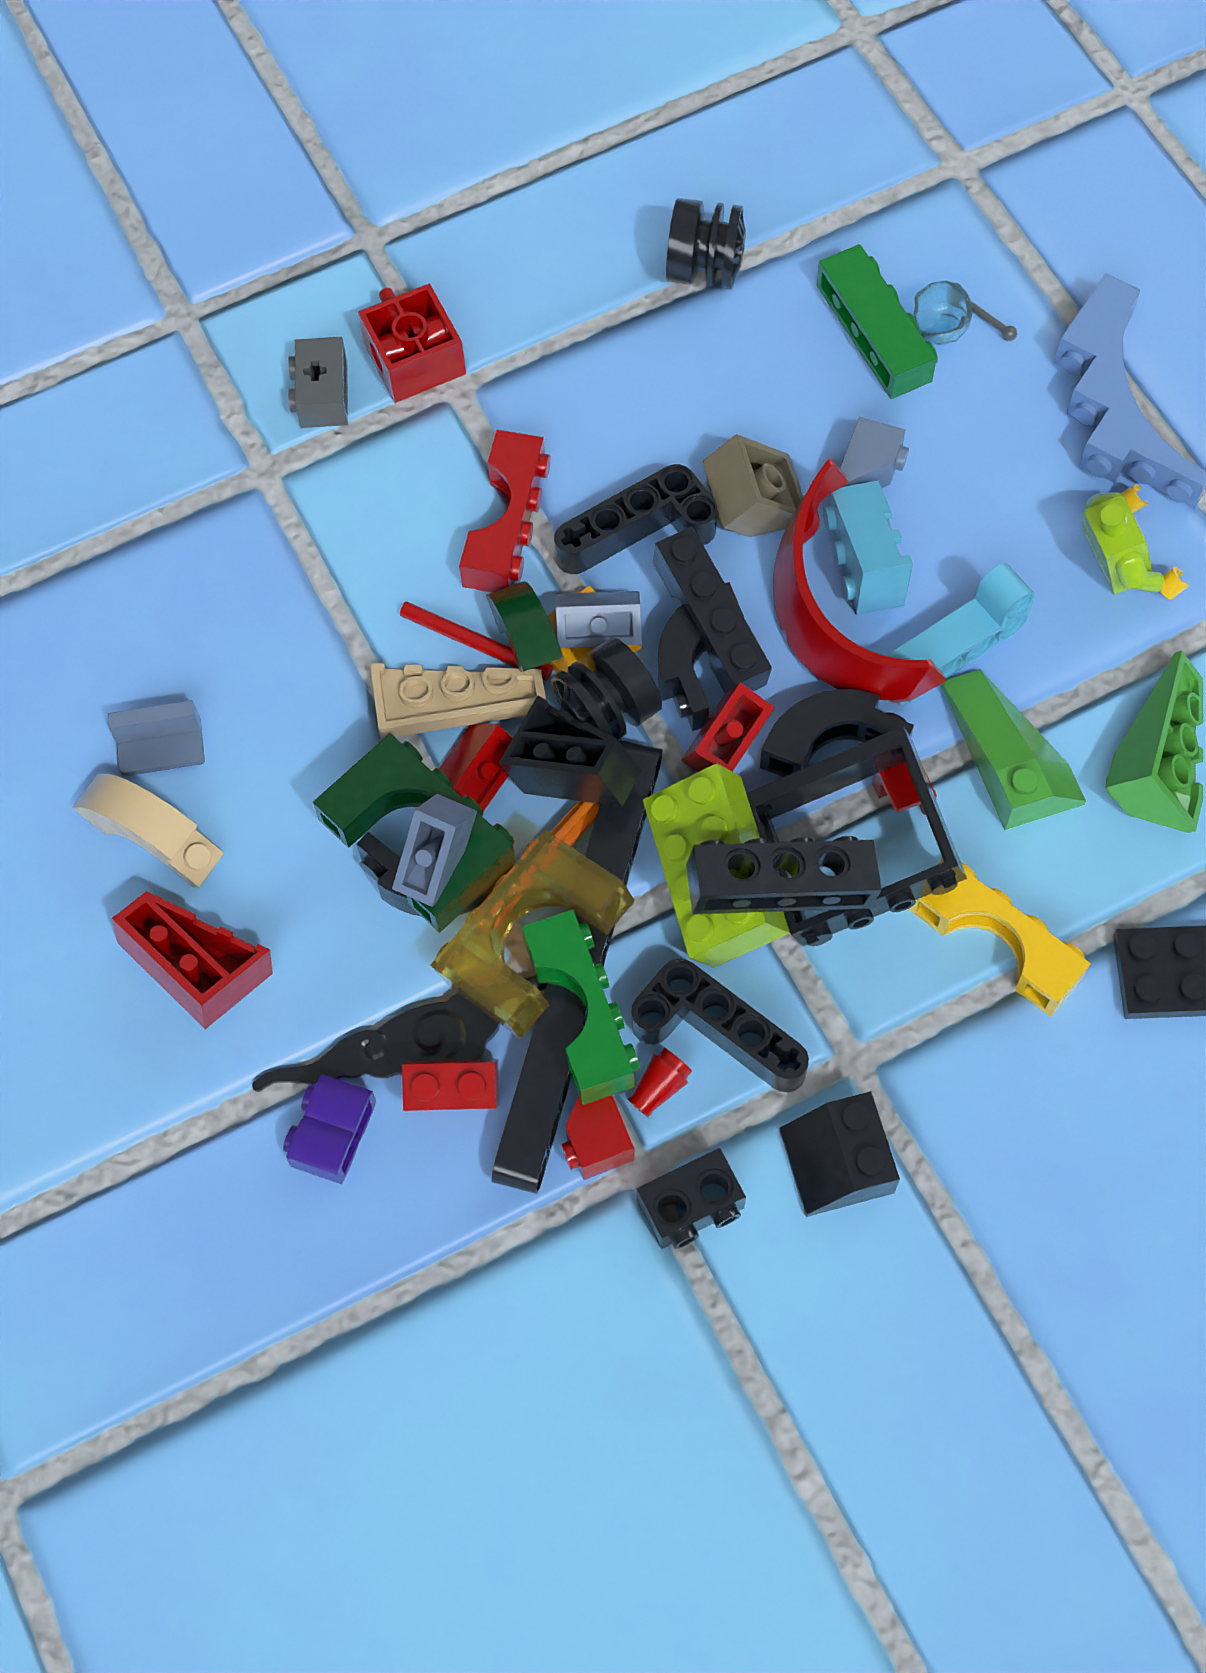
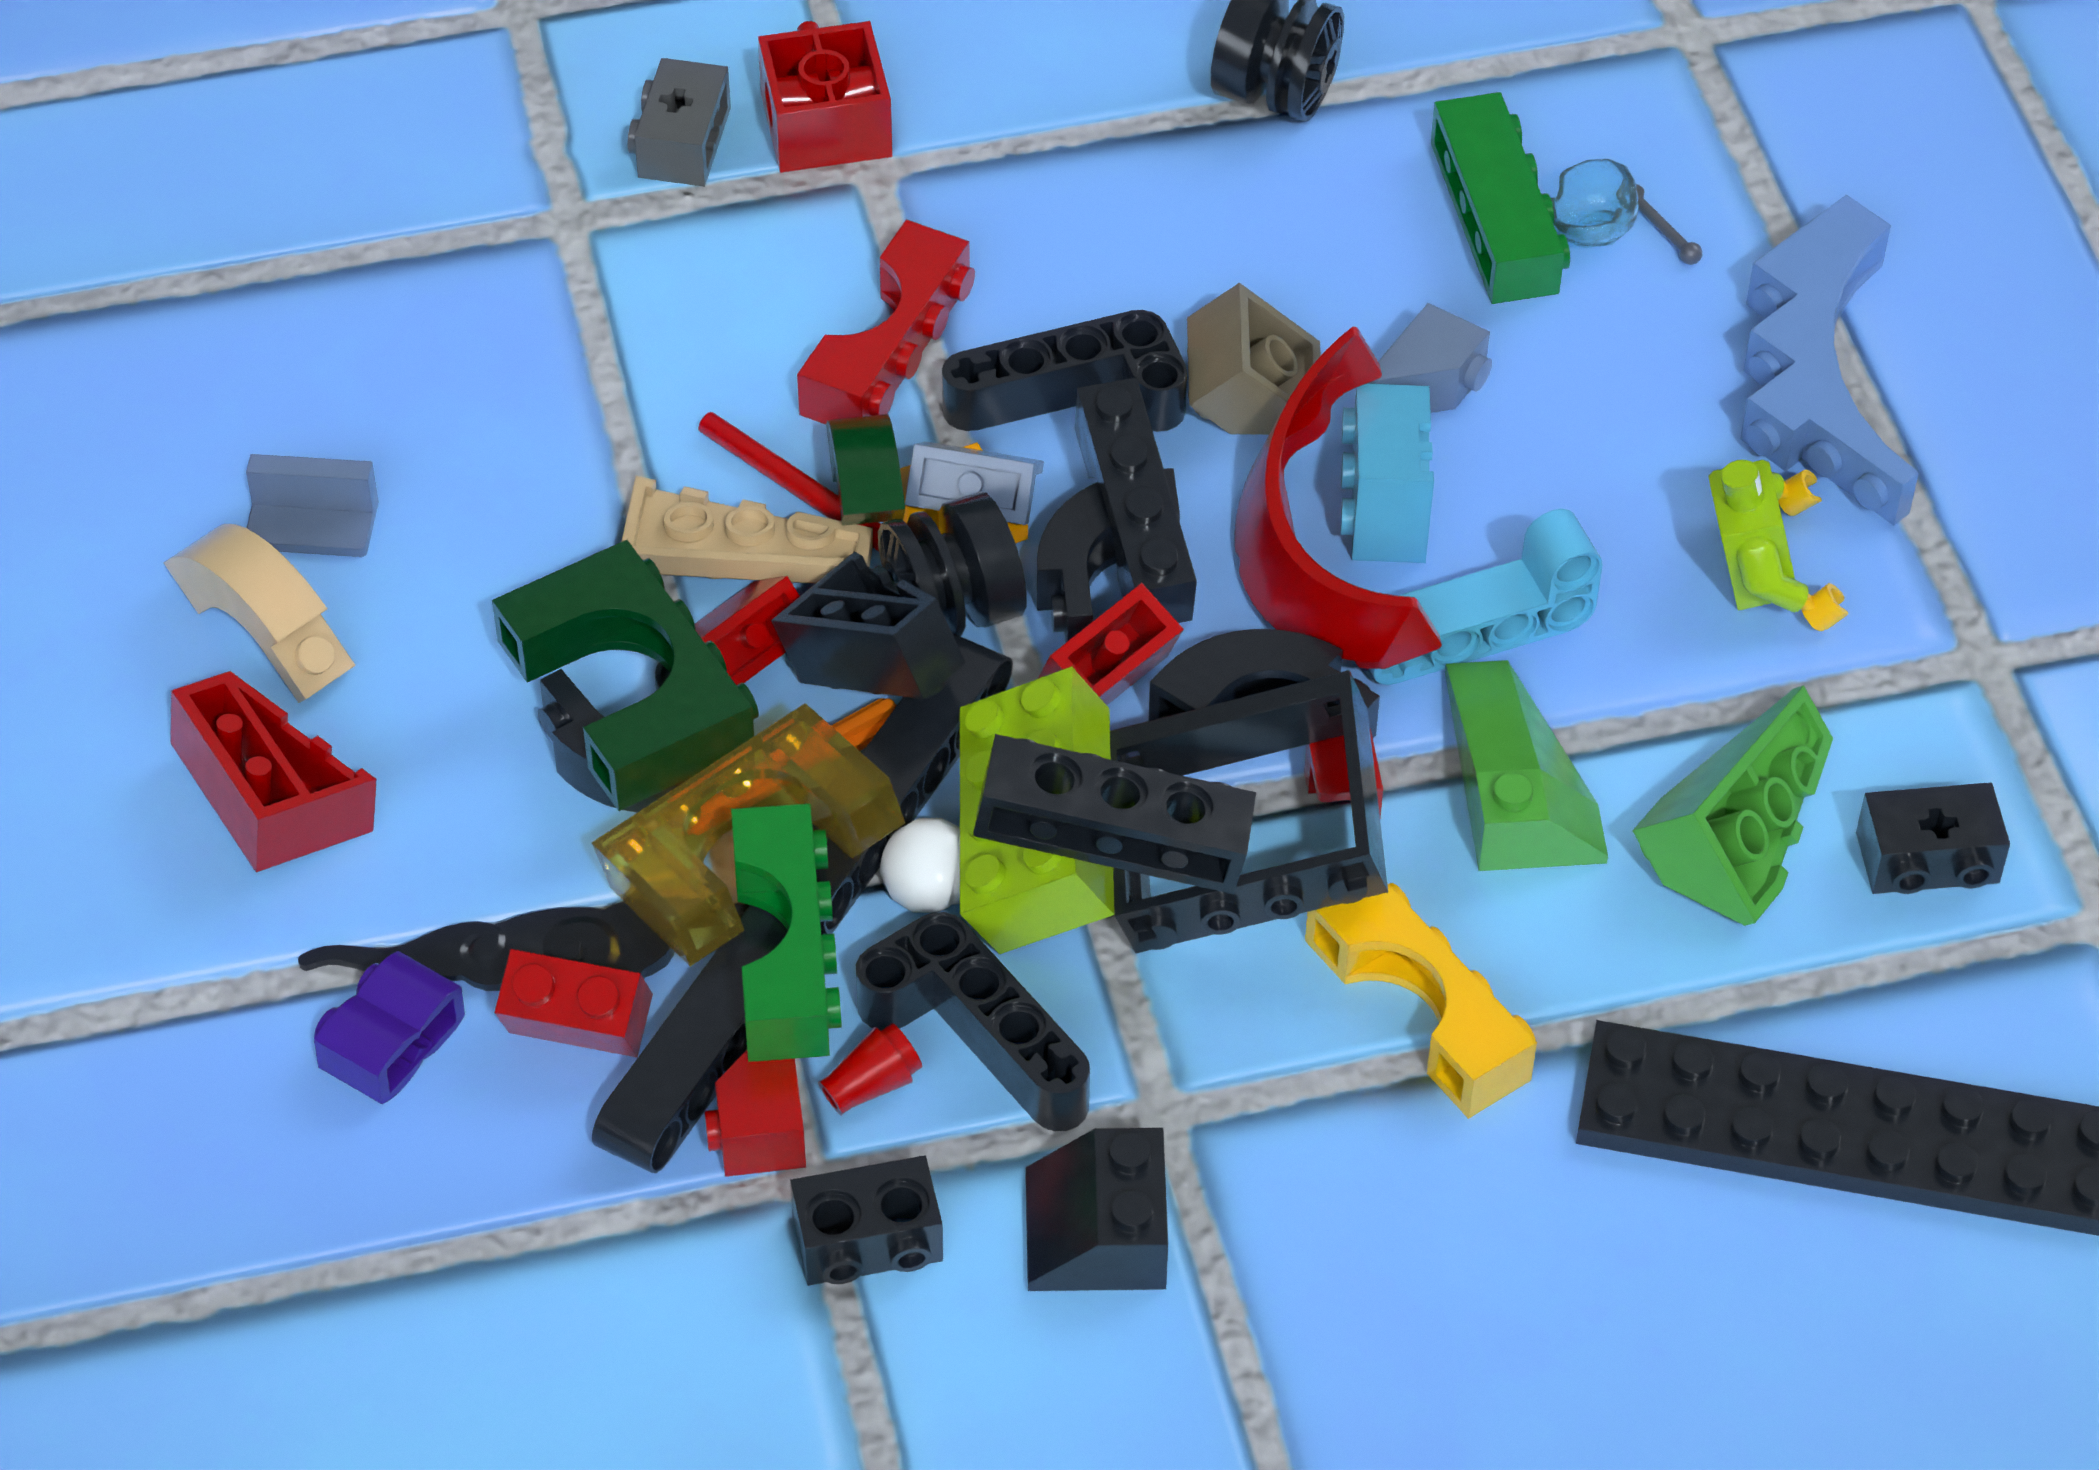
camera: 10 degrees right, 15 degrees down
(433, 848) = (637, 678): sand blue slope -> none
(651, 918) = (923, 865): none -> white hair

